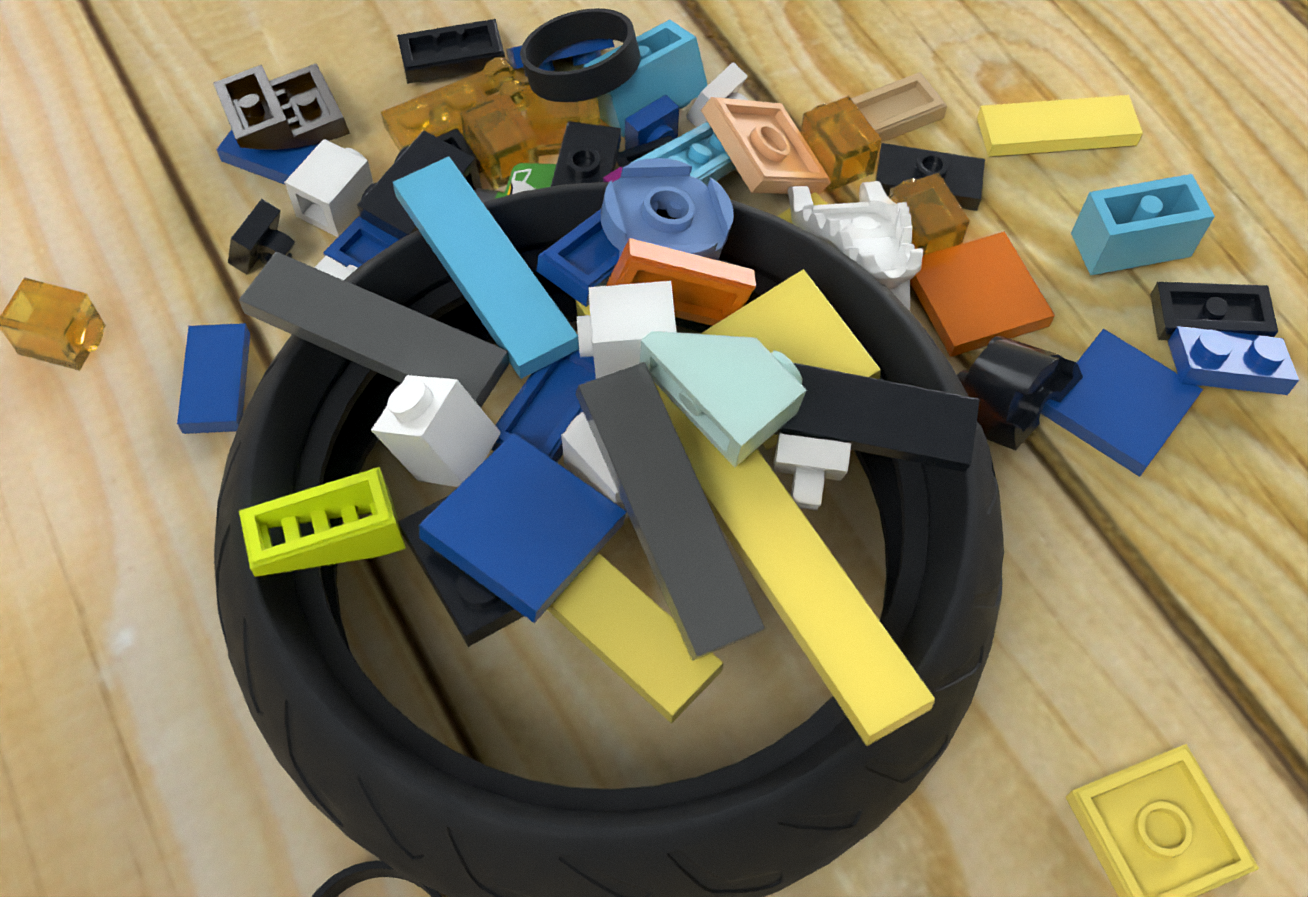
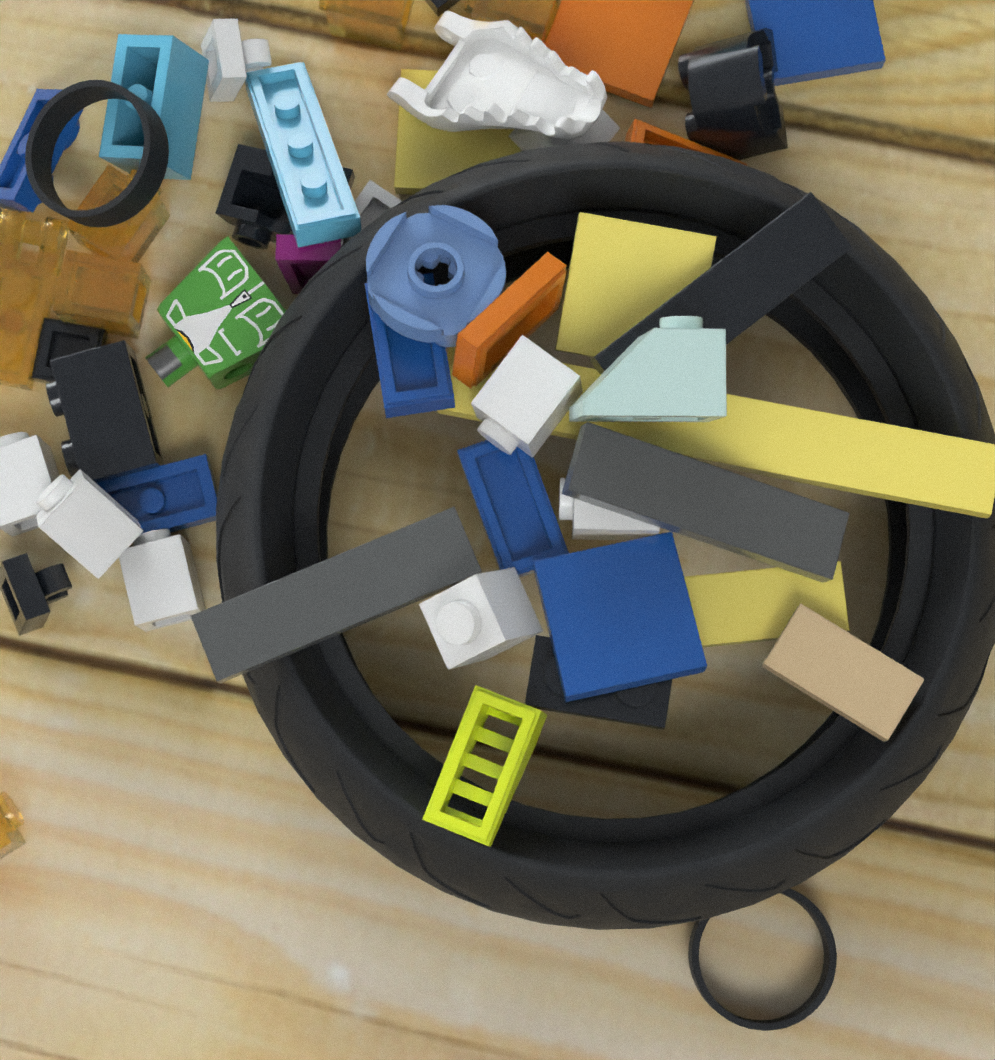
camera: 45 degrees left, 20 degrees up
(214, 378) = (143, 733): blue tile -> none
(327, 217) = (86, 521): none -> white brick
(486, 267) = (343, 455): medium azure tile -> none
(586, 153) = (228, 259): black plate -> none
(629, 733) = (843, 672): none -> tan tile
(652, 123) = (212, 150): blue plate -> none
(764, 145) = (326, 72): light nougat tile -> none
(811, 463) = (748, 361): white tile -> none

